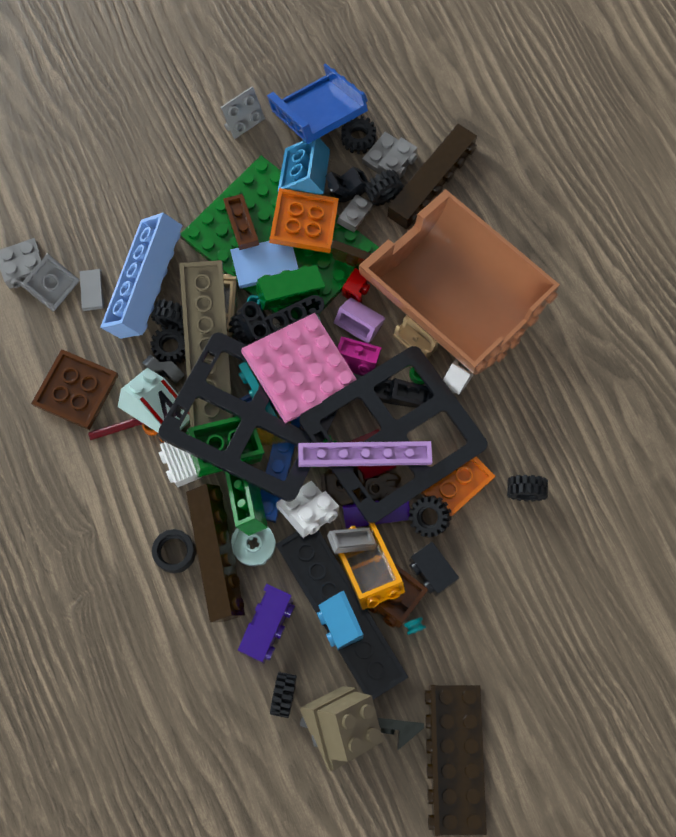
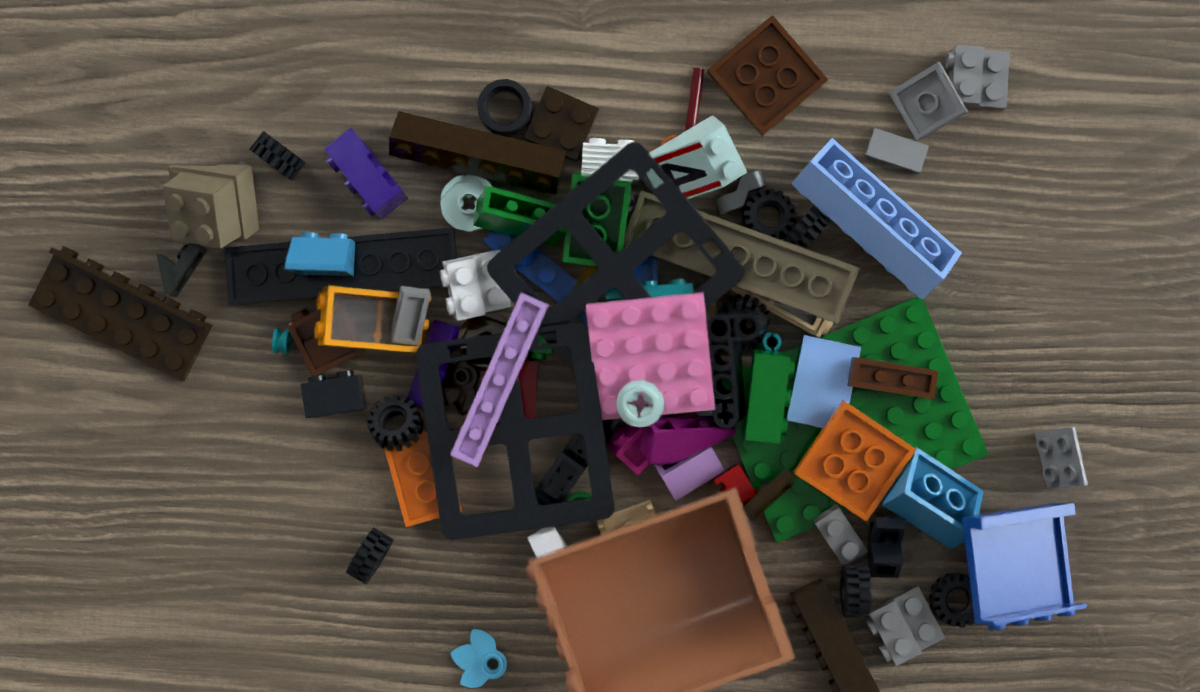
camera: 115 degrees right, 15 degrees up
(167, 509) = (561, 122): none -> dark brown plate
(338, 349) = (629, 411): none -> light aqua gear
(344, 329) = (680, 437): none -> magenta slope
(554, 393) = (475, 657): none -> medium azure plate

